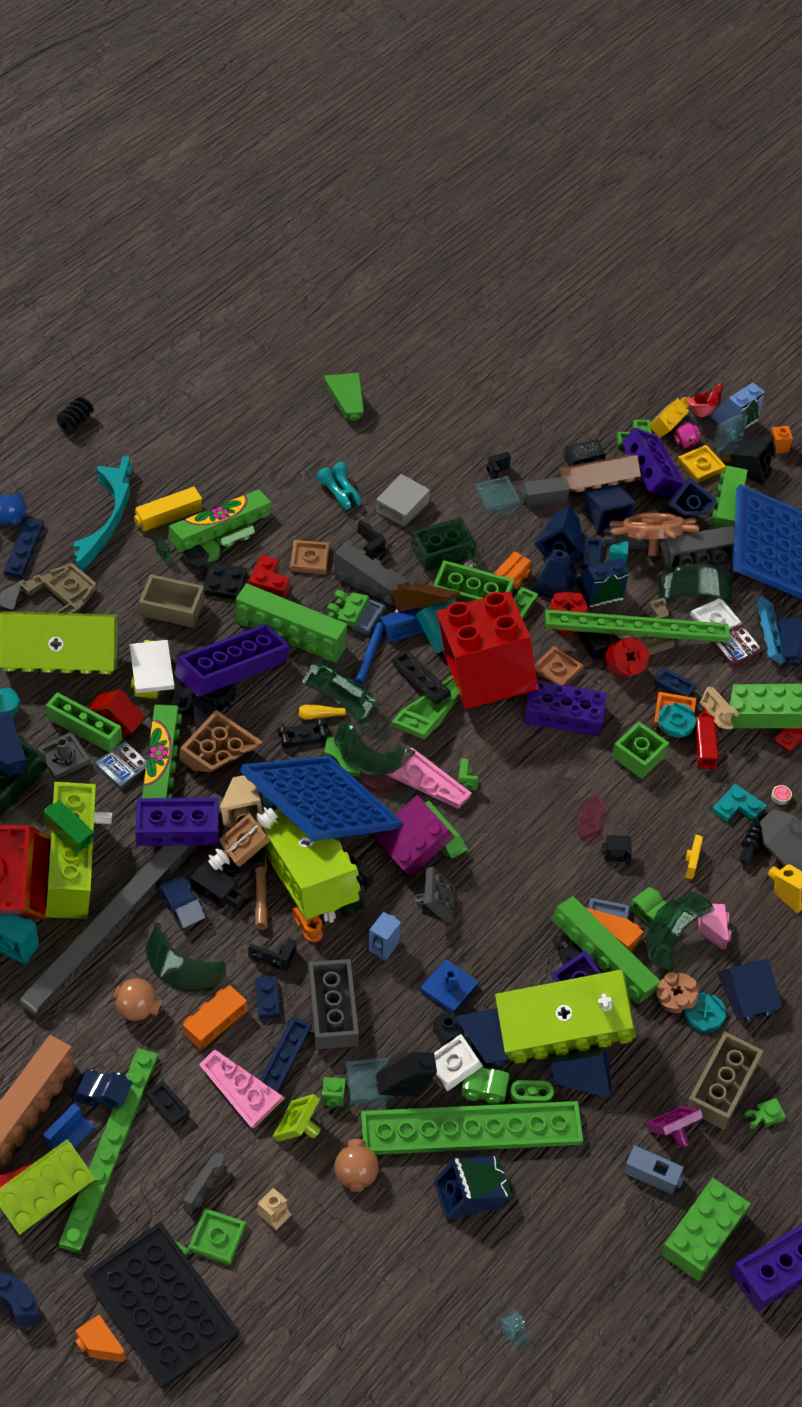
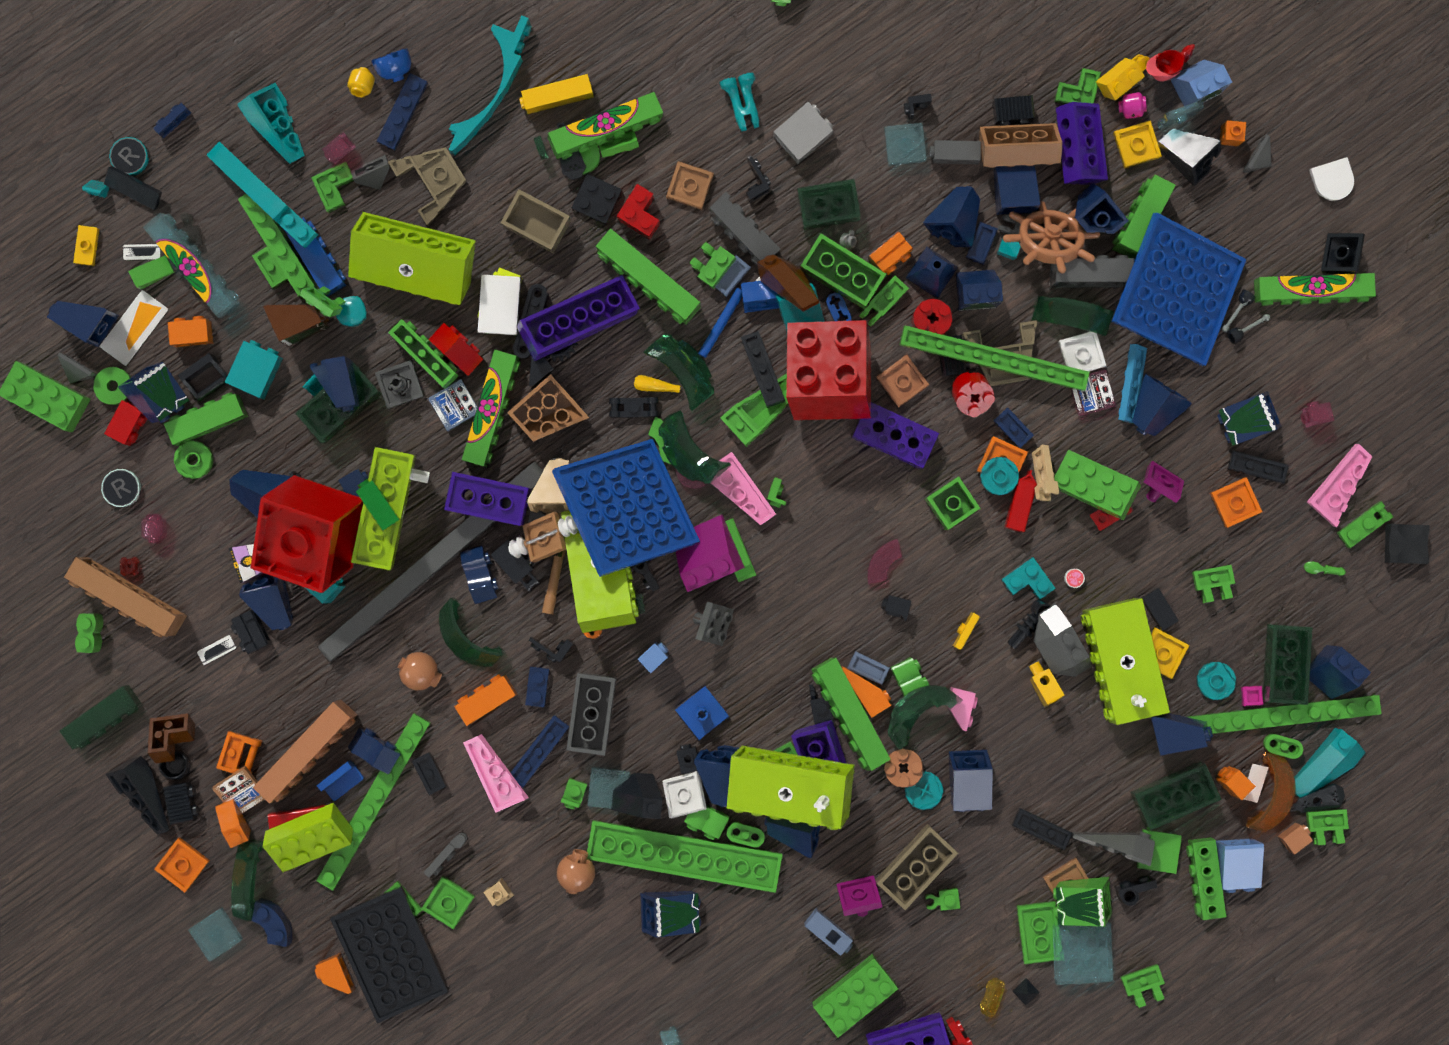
camera: 20 degrees right, 35 degrees up
(297, 1119) = (535, 819): lime tile -> none

